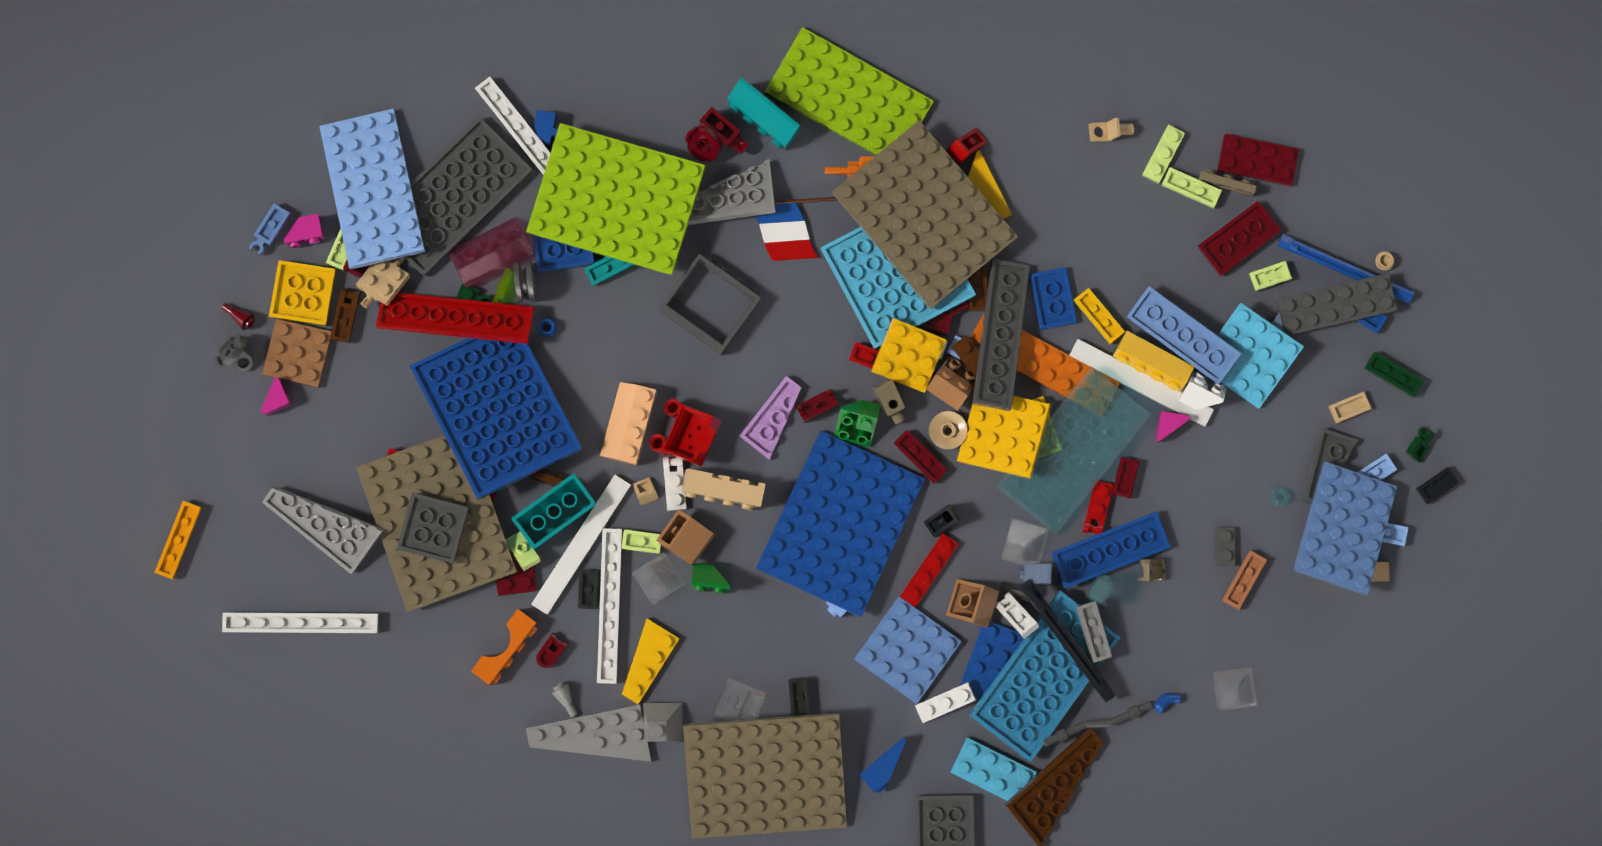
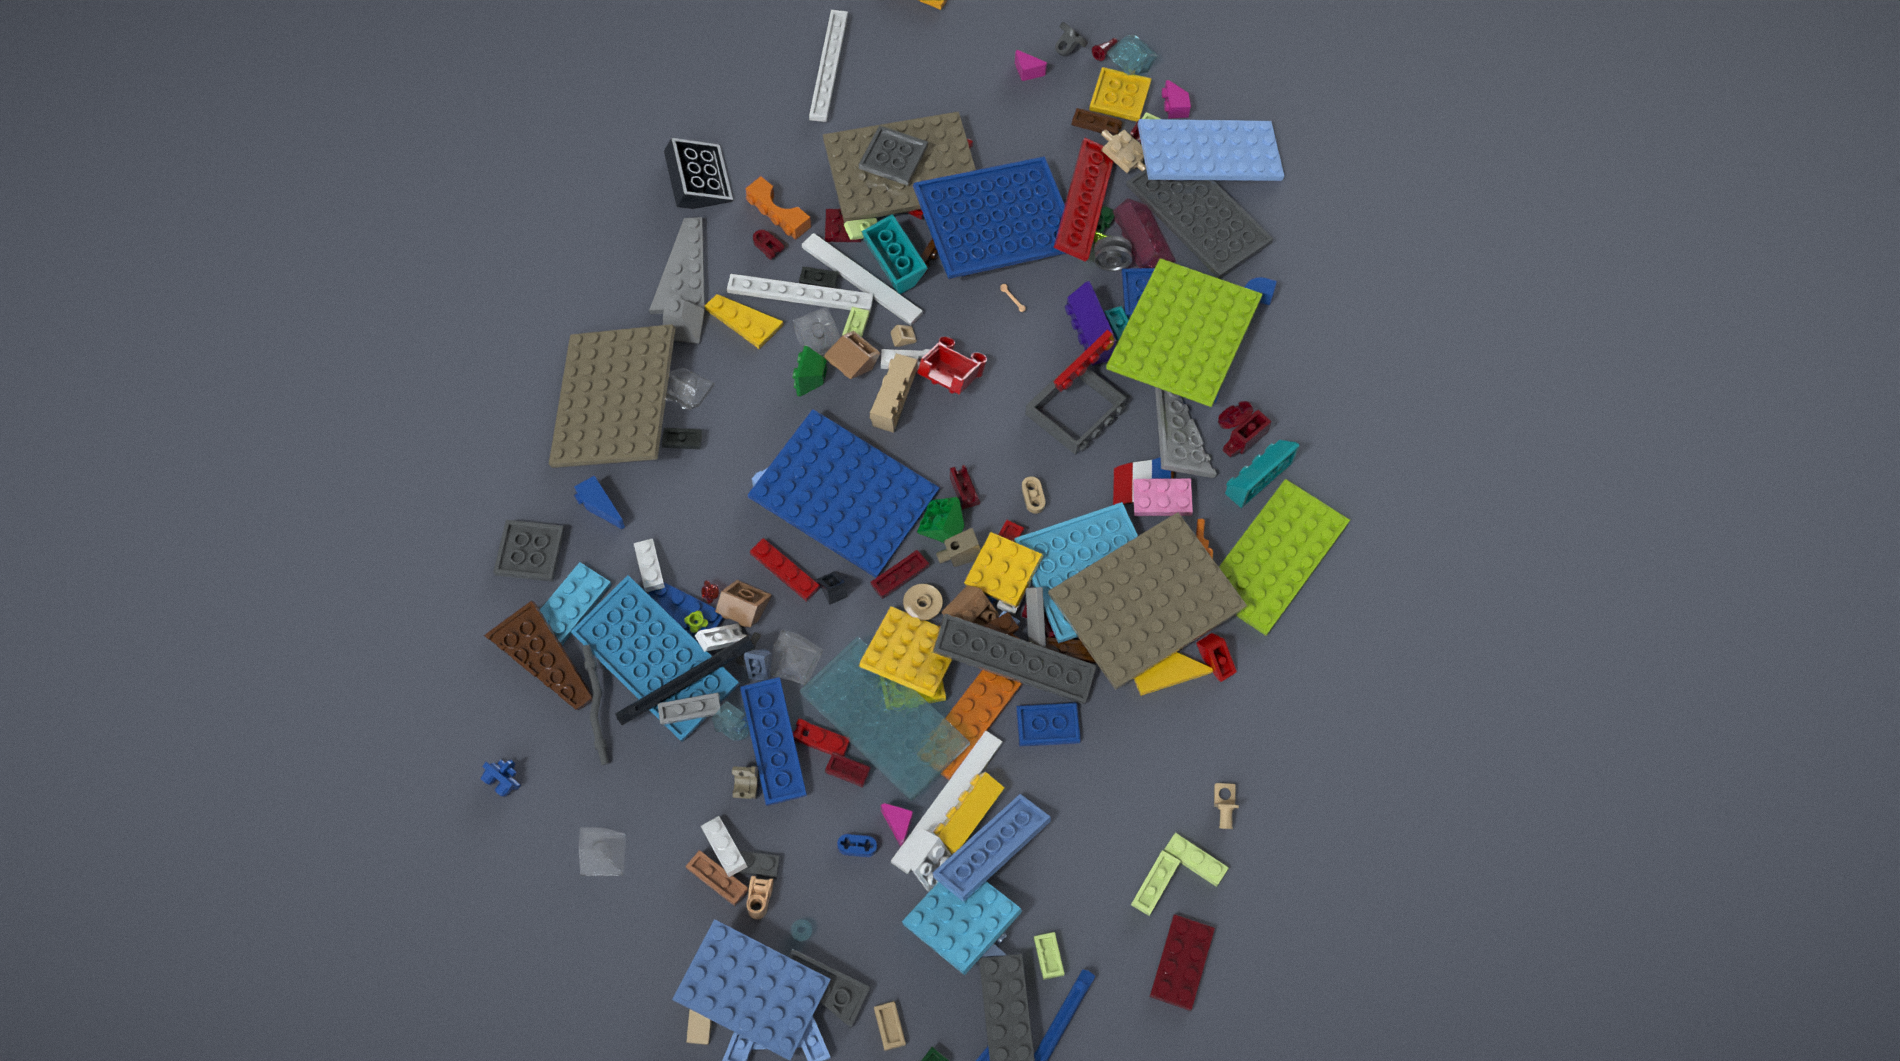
camera: 100 degrees right, 20 degrees down
(253, 282) = (1132, 55): none -> clear light blue slope
(270, 228) = (1180, 76): medium blue plate -> none
(297, 353) = (1066, 87): medium nougat plate -> none
(333, 532) = (904, 92): light grey wing -> none
(470, 742) = (697, 173): none -> black slope
(514, 123) = (1270, 264): white plate -> none
(545, 321) = (1069, 269): blue plate -> none
(563, 695) = (726, 248): light grey cone -> none
(572, 393) = (1004, 288): none -> light nougat hinge
(614, 297) = (1088, 318): none -> dark purple slope
(628, 423) = (968, 329): light nougat slope -> none
(677, 301) = (1080, 365): none -> red plate
(768, 423) = (956, 446): lavender wing -> none
(803, 209) = (1162, 497): none -> bright pink plate
(816, 337) = (1033, 496): none -> tan plate
(907, 650) = (708, 540): medium blue plate -> none
(954, 319) = (1035, 616): none -> light grey tile
(965, 638) = (709, 591): none -> clear red plate
(996, 643) = (694, 627): none -> lime plate
(1099, 316) = (1024, 766): yellow plate -> none
(1164, 700) = (607, 779): blue arm -> none
(1176, 797) = (501, 773): none -> blue hips
(1190, 459) = (856, 850): none -> blue beam
(1215, 578) = (724, 846): none -> white plate
(1227, 182) = (1159, 921): dark tan plate -> none
(1239, 238) = (1094, 927): dark red plate -> none
(1254, 539) = (759, 893): none -> light nougat piece

